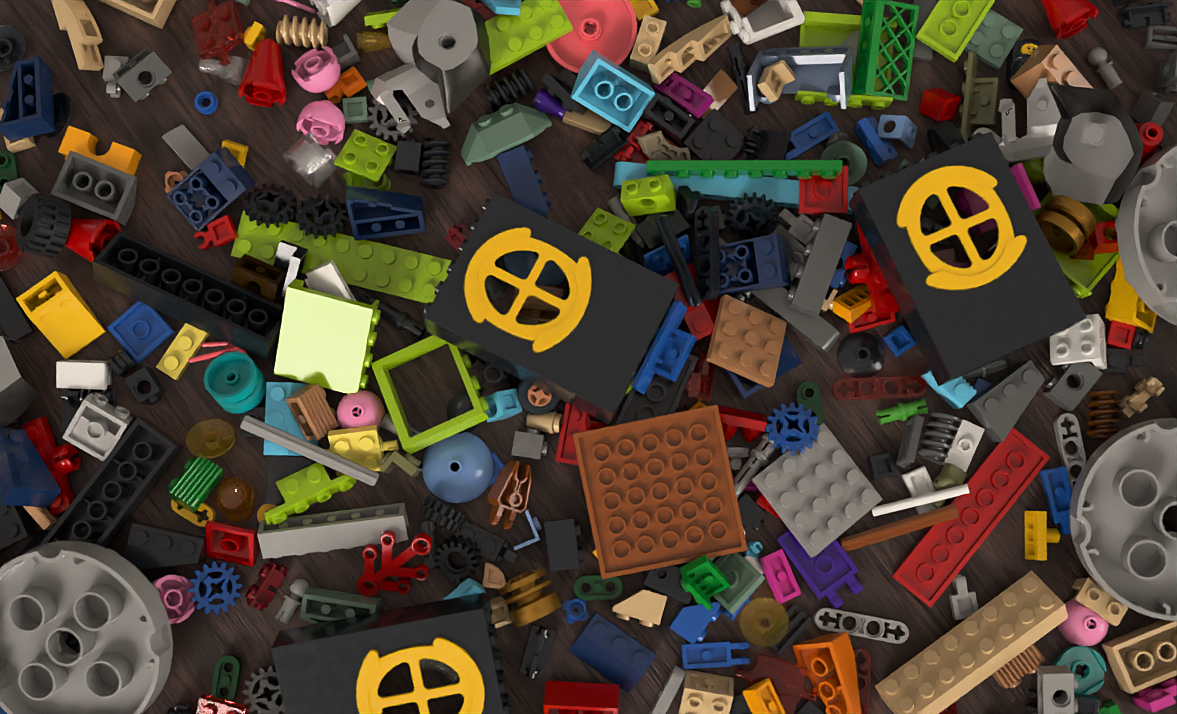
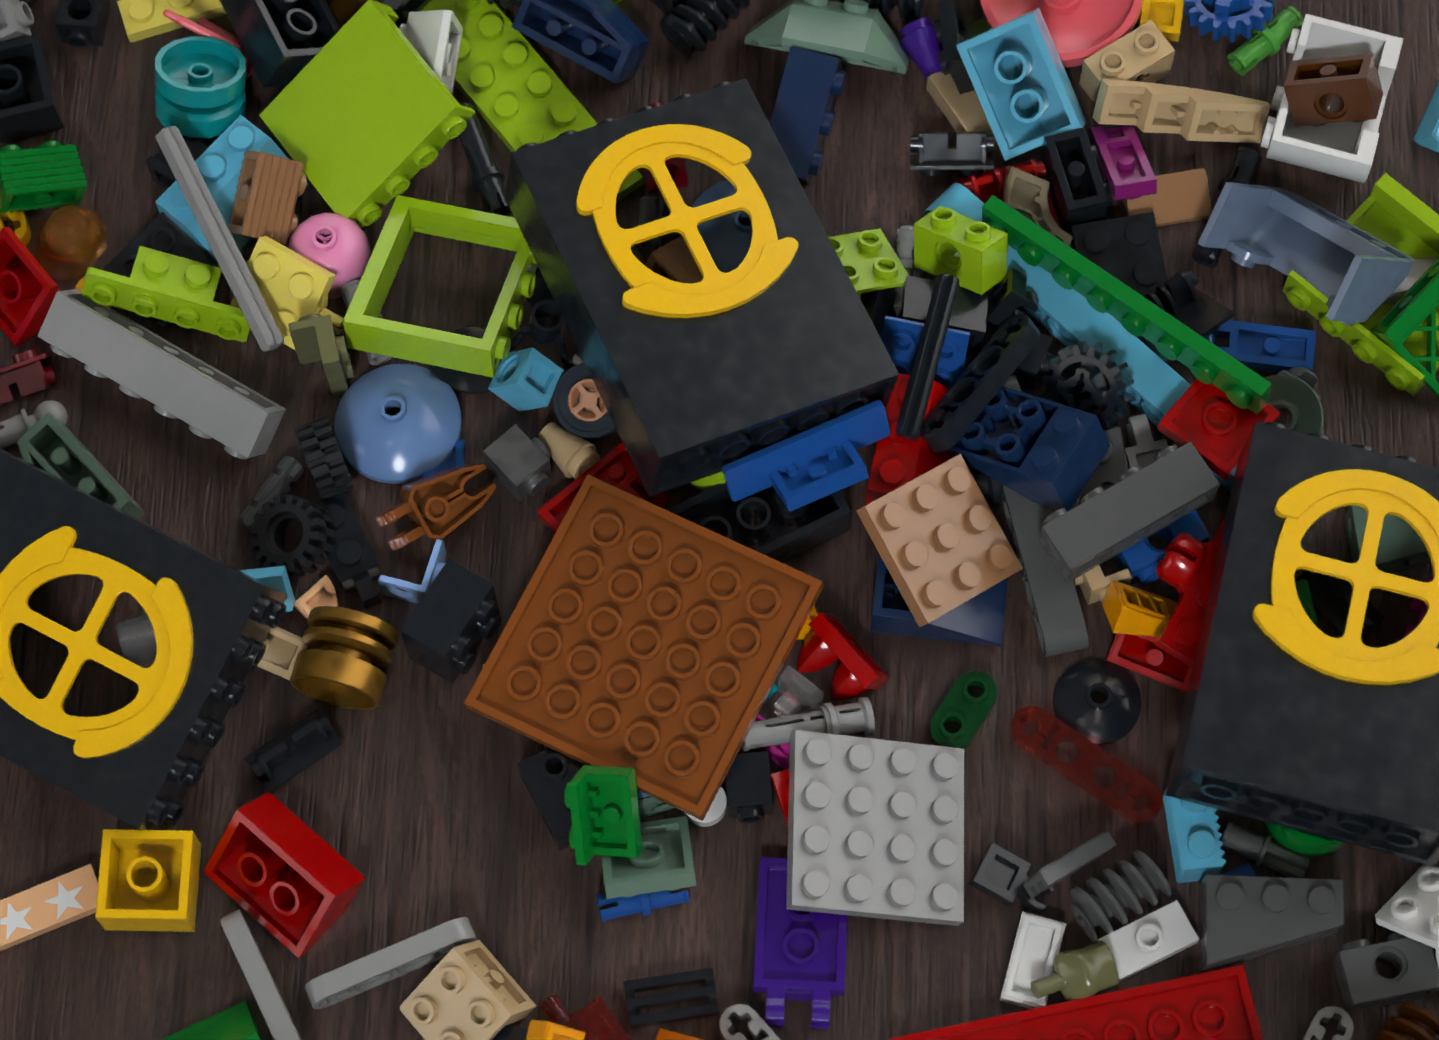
camera: 40 degrees right, 15 degrees down
(202, 435) = (106, 137): clear yellow dish -> none
(391, 566) = (193, 476): red plant -> none
(571, 616) = (398, 724): blue plate -> none
(598, 589) = (452, 728): dark green plate -> none
(612, 652) = (395, 829): dark blue slope -> none
(643, 605) = (493, 797): tan slope -> none
(692, 620) = (547, 874): blue slope -> none
(701, 383) = (833, 556): clear red plate -> none
(712, 654) = (533, 946): blue hinge -> none
(752, 555) = (706, 855): arm -> none
(761, 609) = (641, 940): clear yellow dish -> none
(774, 79) = (1268, 229): tan bracket -> none
(779, 576) = (722, 912): dark pink plate -> none
(793, 438) = (908, 712): blue gear -> none
(879, 149) = (1355, 410): blue bracket -> none
(899, 340) = (1164, 721): blue tile -> none
(899, 527) = (954, 977): dark orange axle -> none
(901, 411) = (1092, 820): bright green pin -> none
(904, 130) = (1407, 433): light blue bracket -> none
(920, 500) = (1018, 961): white bar -> none

